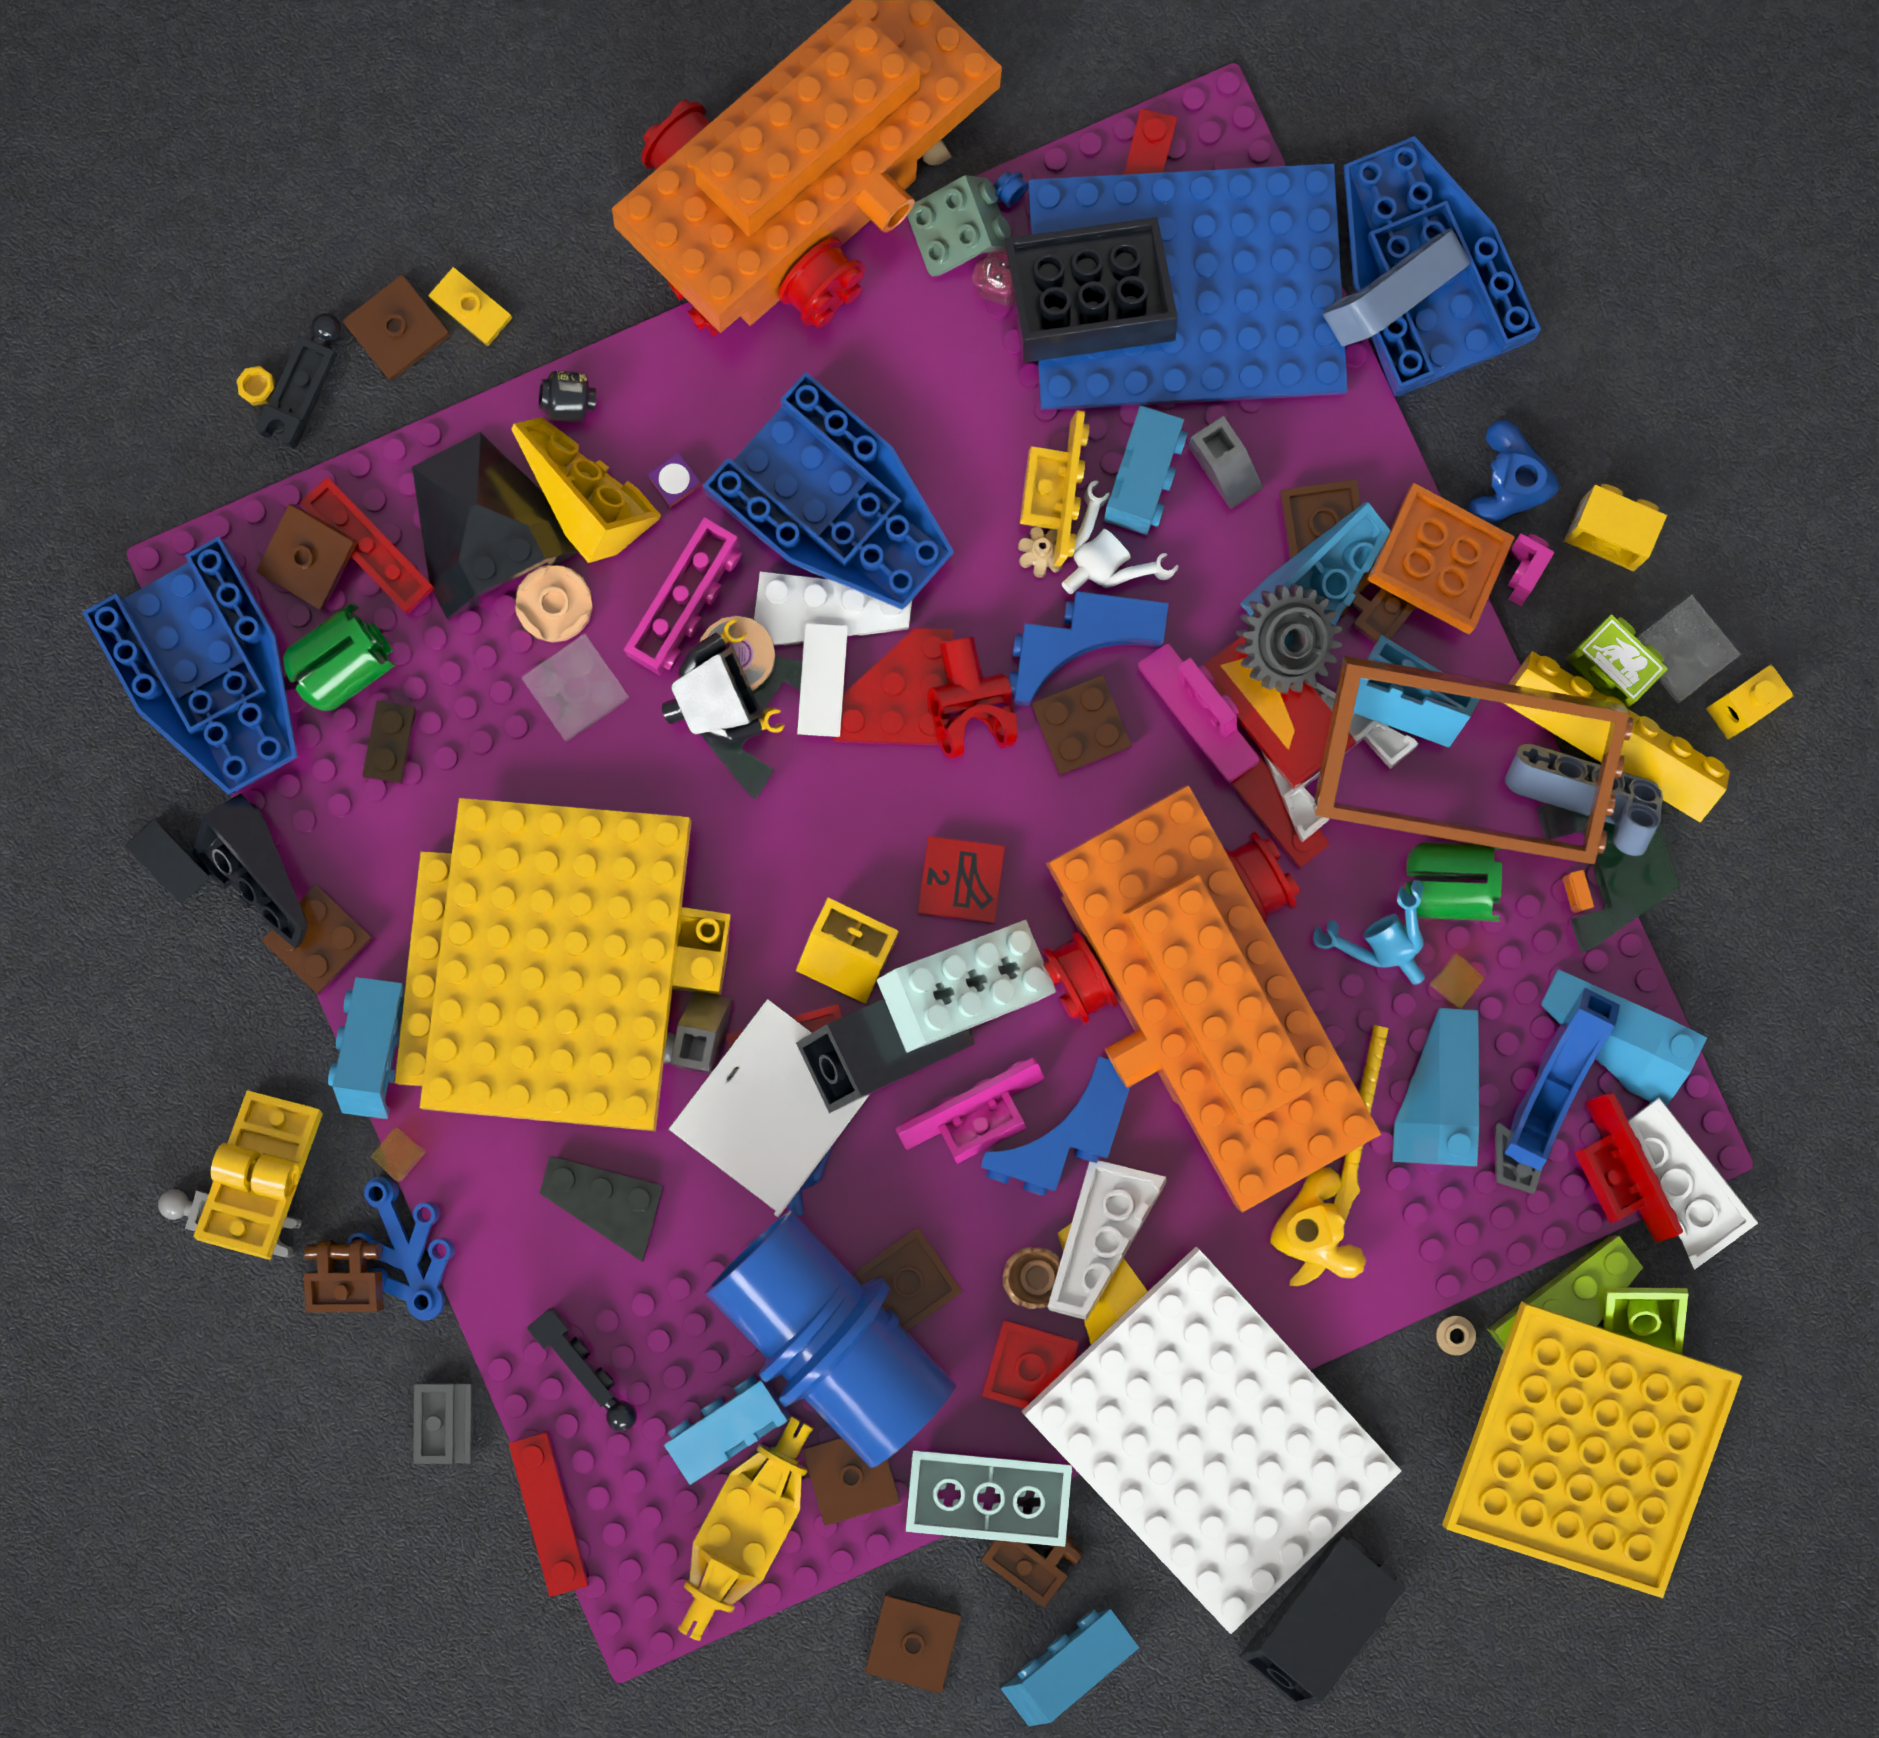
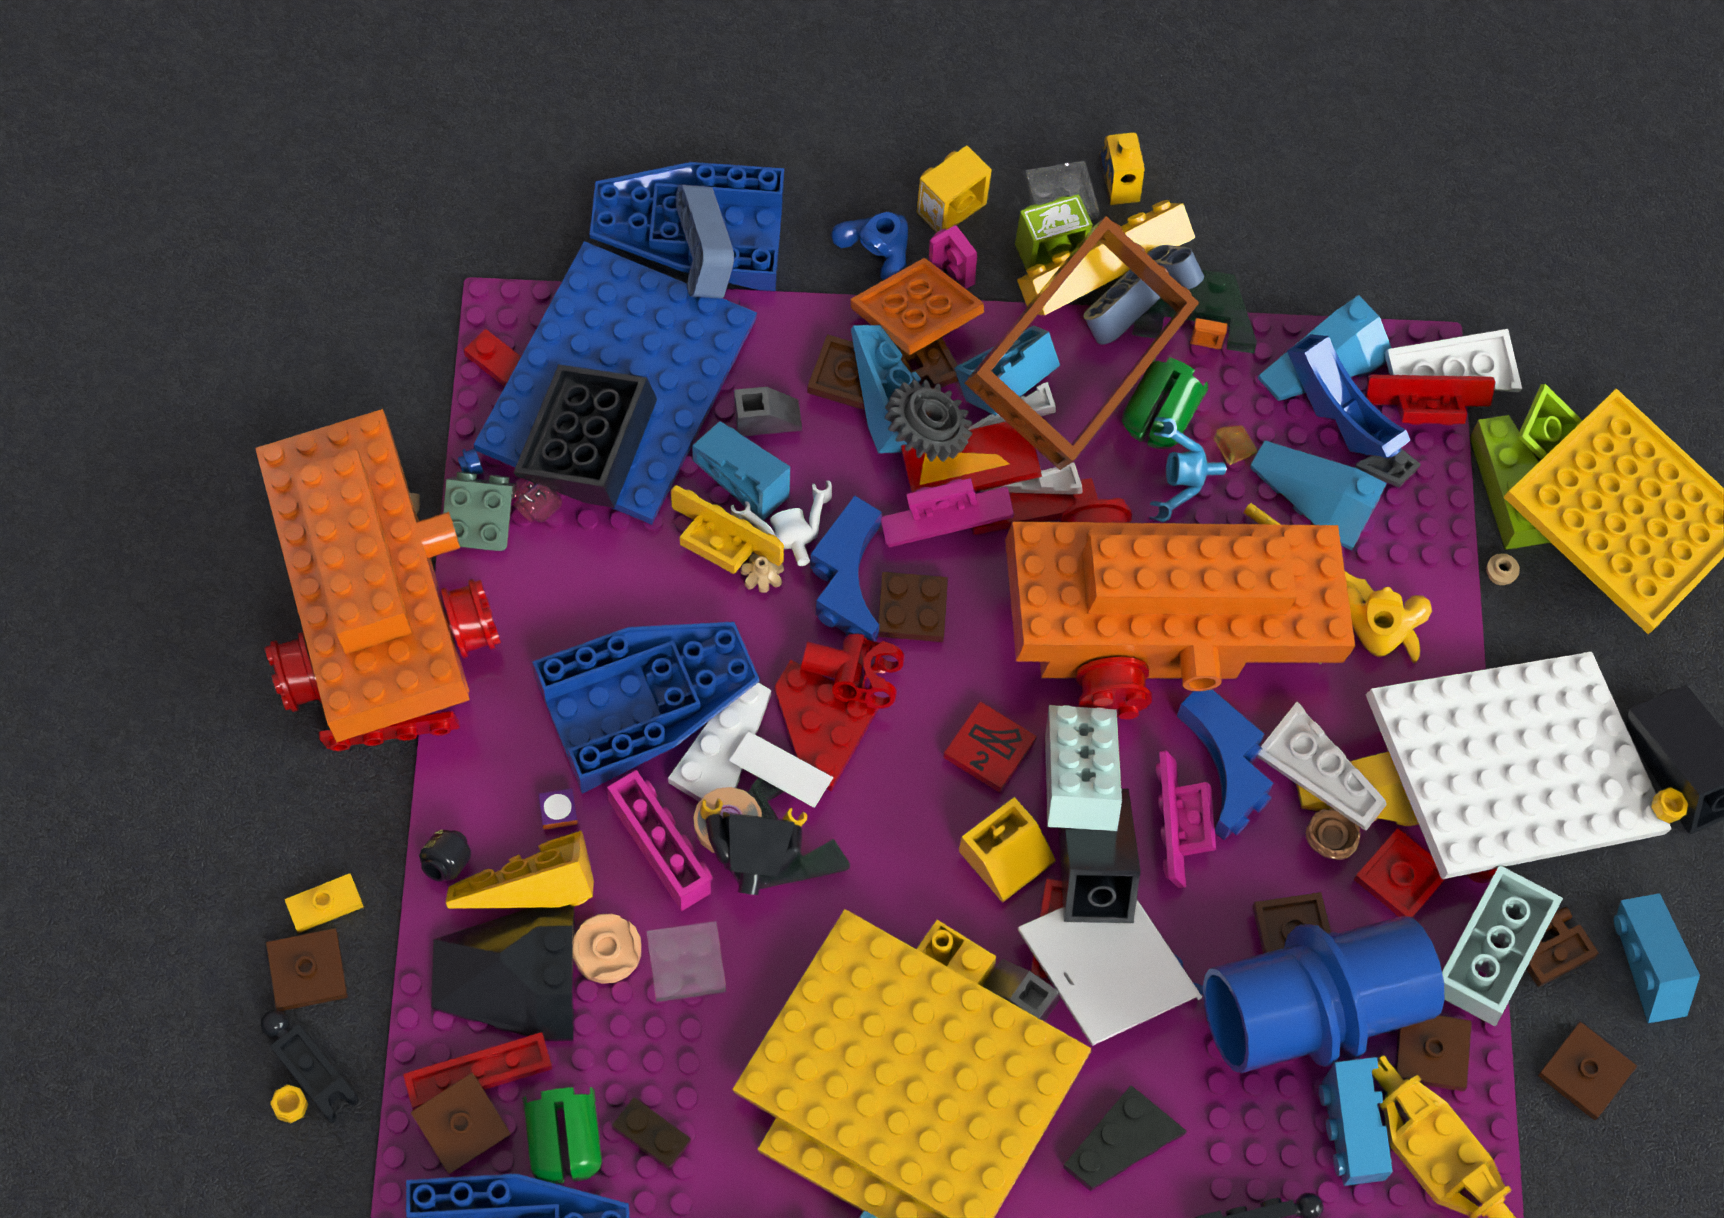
camera: 70 degrees left, 20 degrees down
(1247, 1621) = (1669, 805): none -> yellow tile

